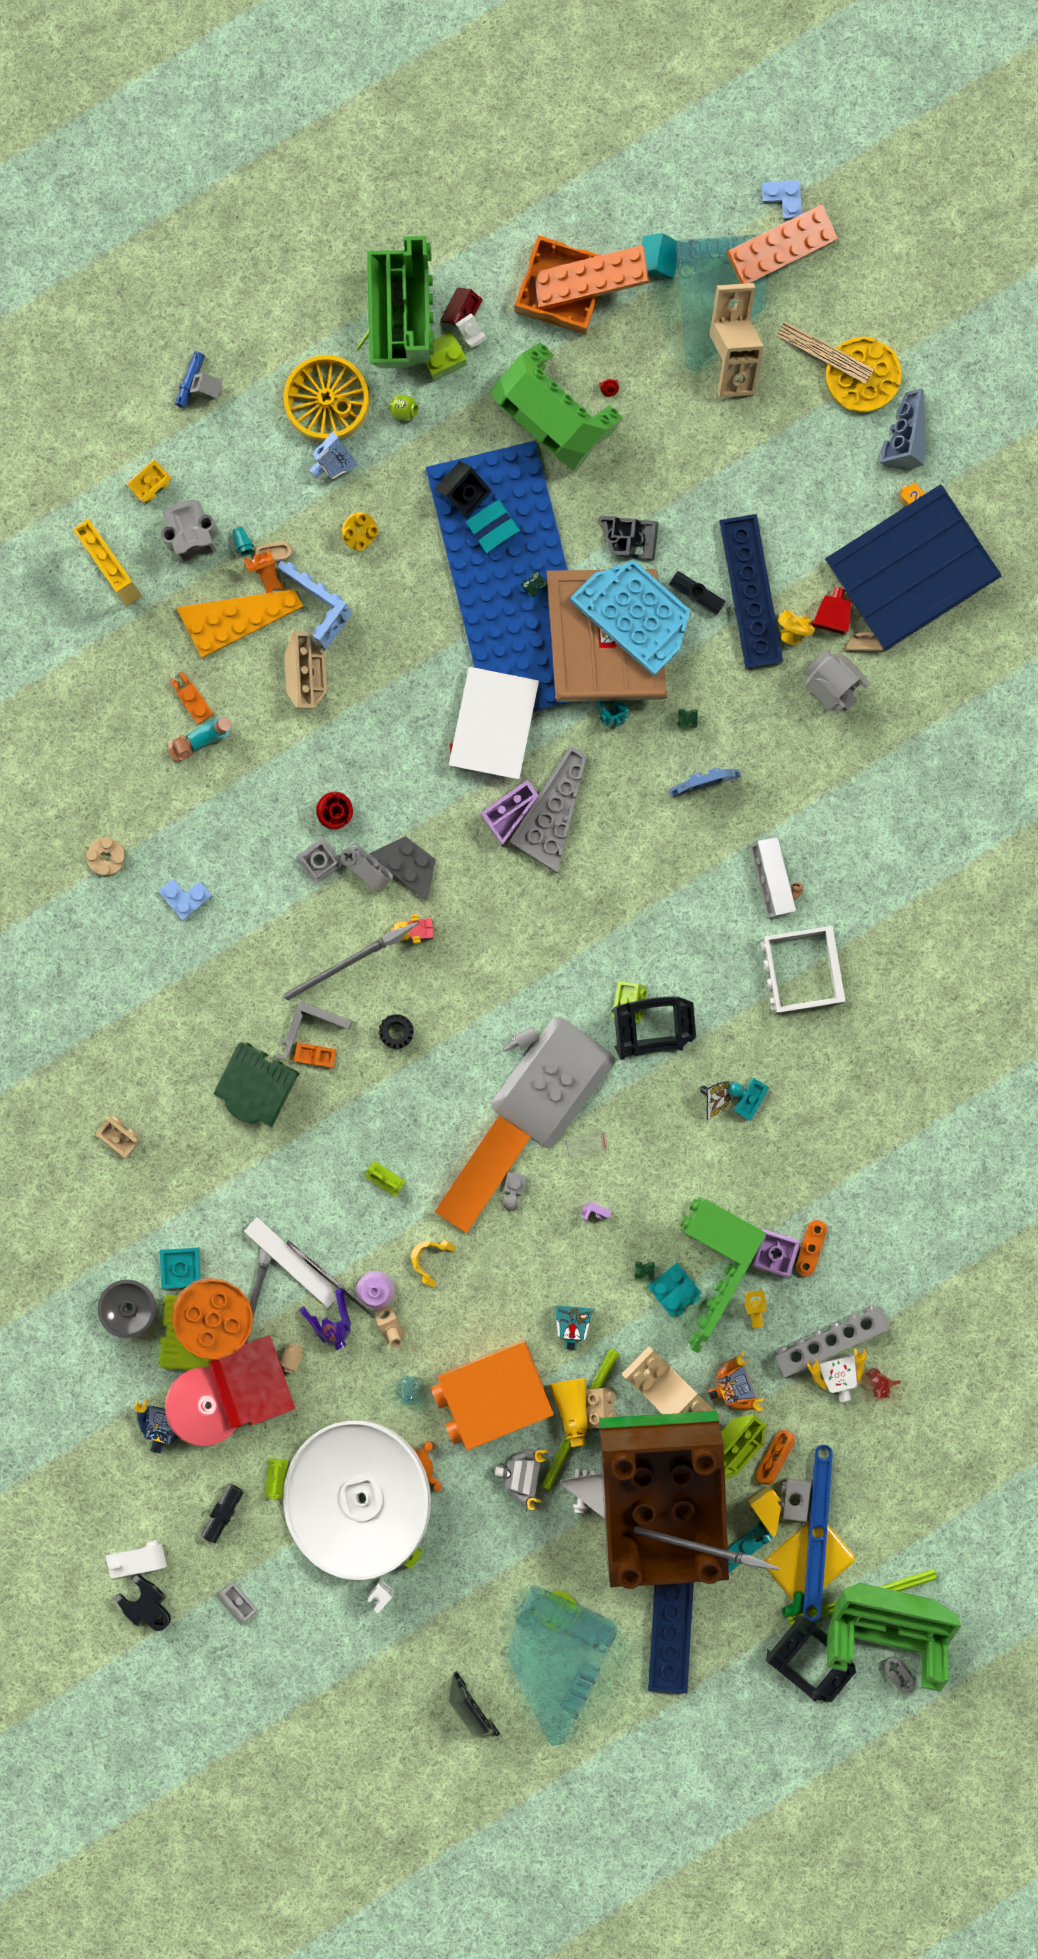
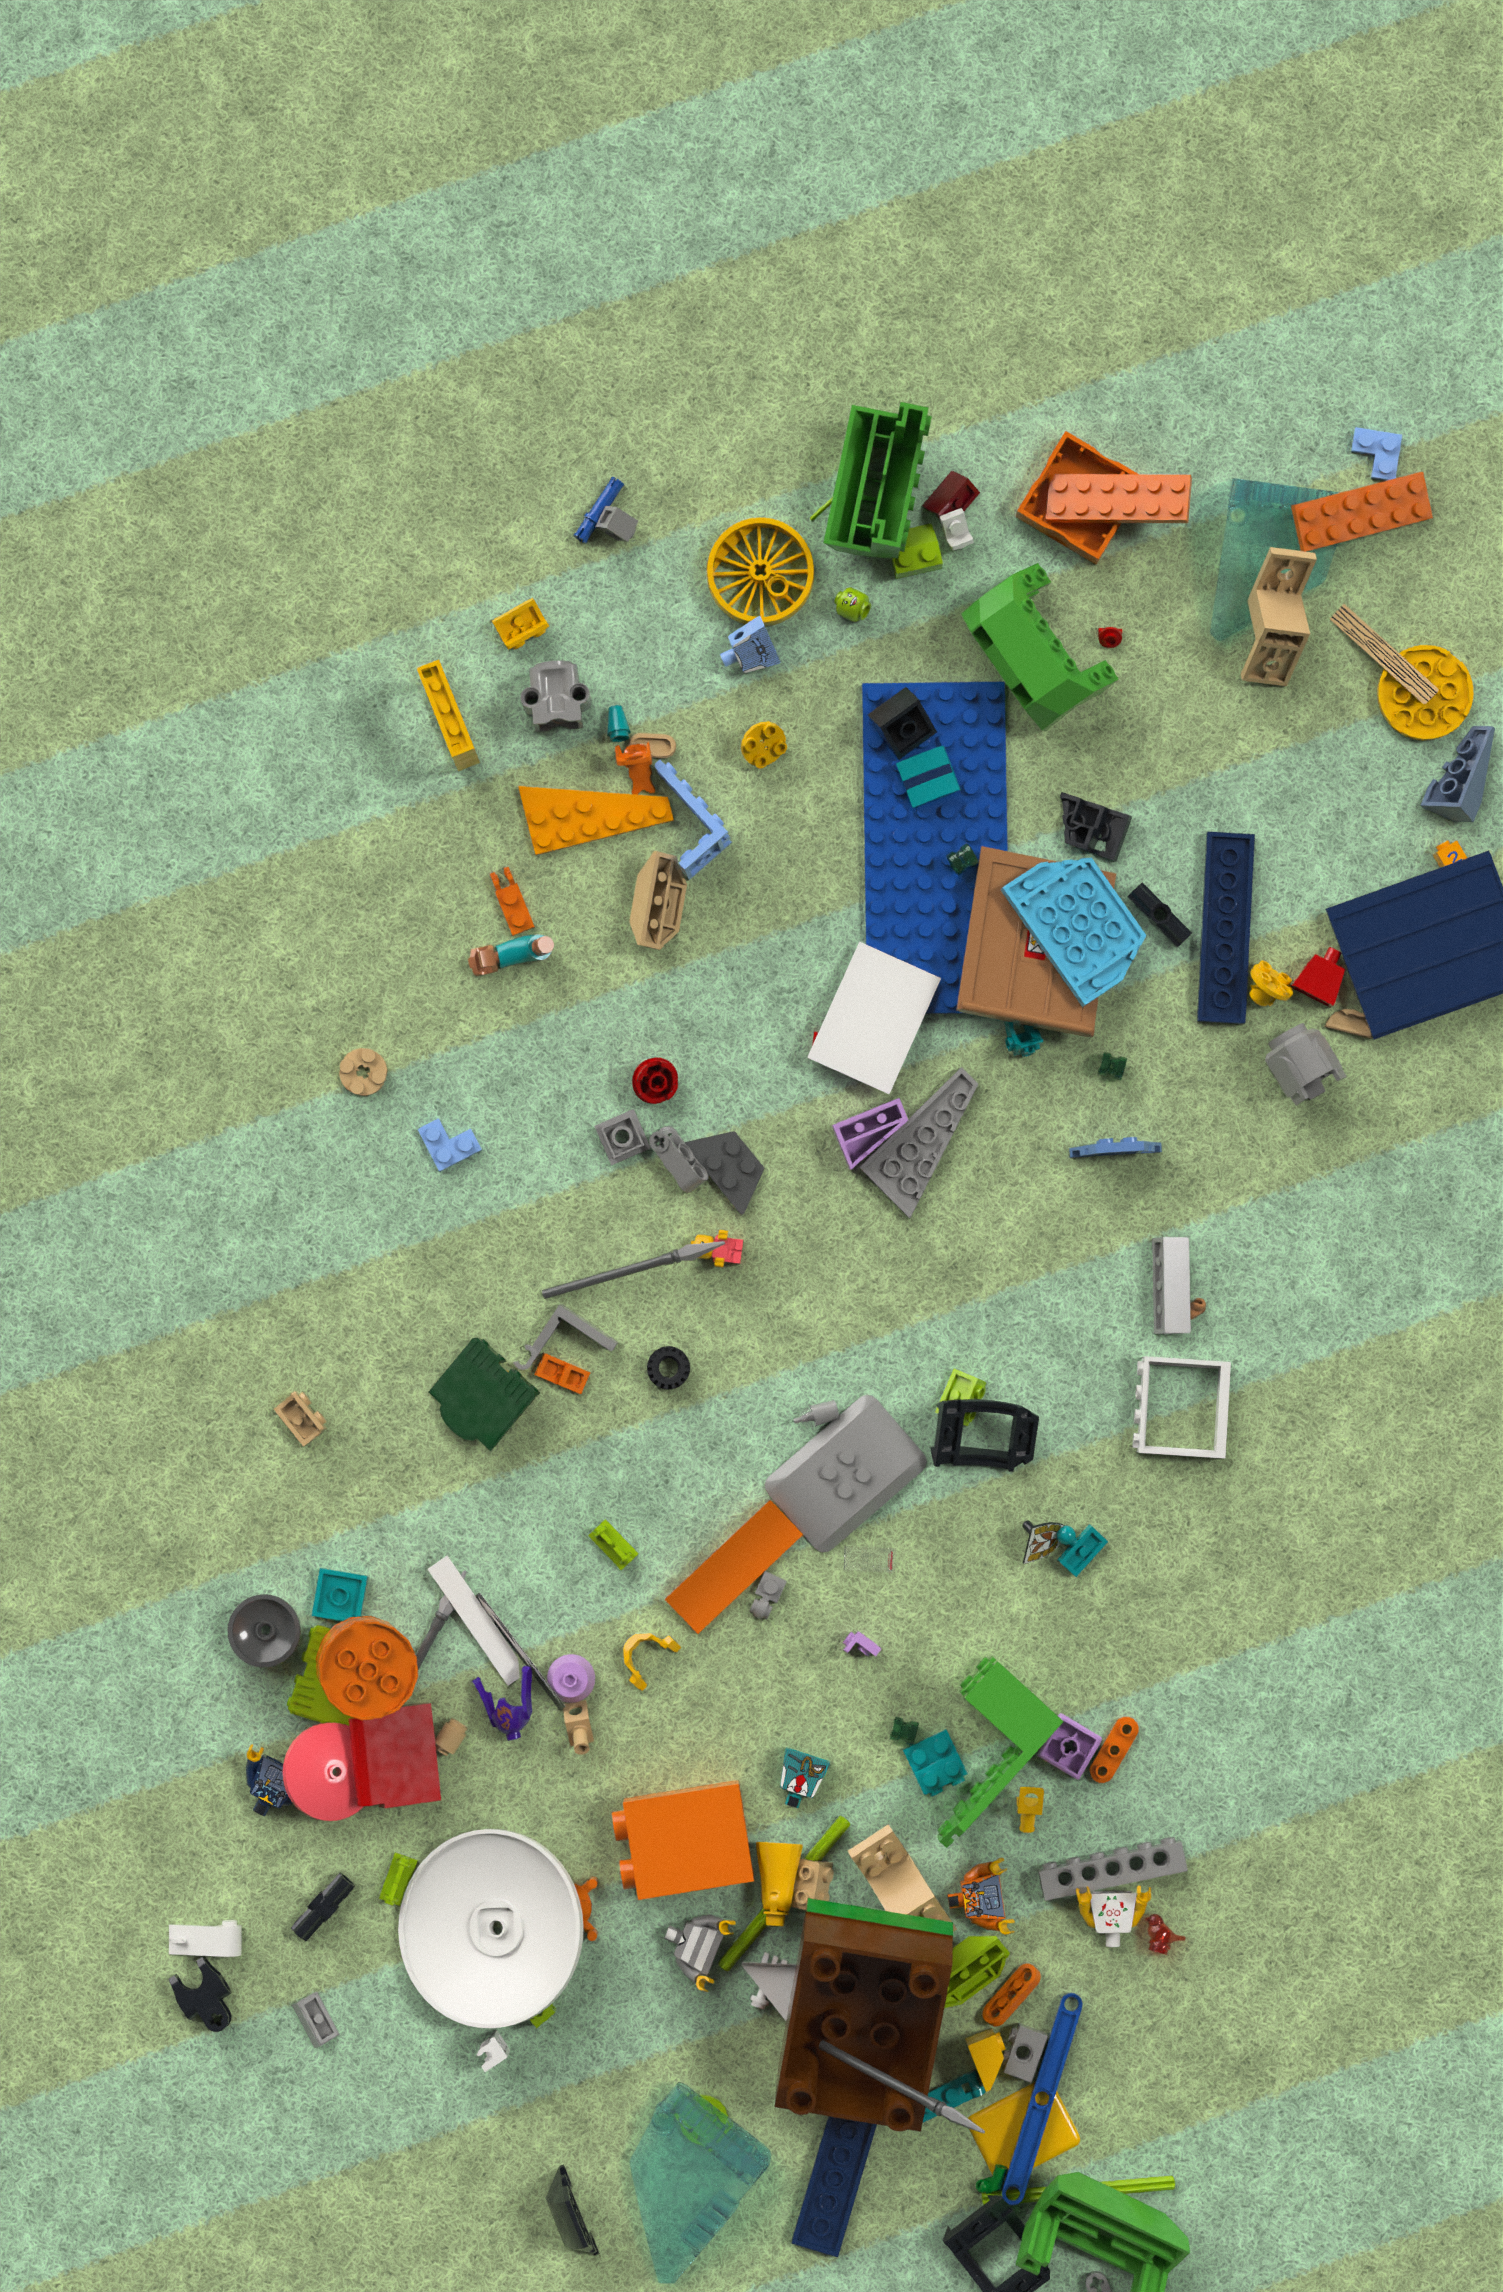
camera: 10 degrees right, 0 degrees up
(409, 1389) = (584, 1808): clear light blue head -> none
(660, 255) = (1209, 488): teal slope -> none

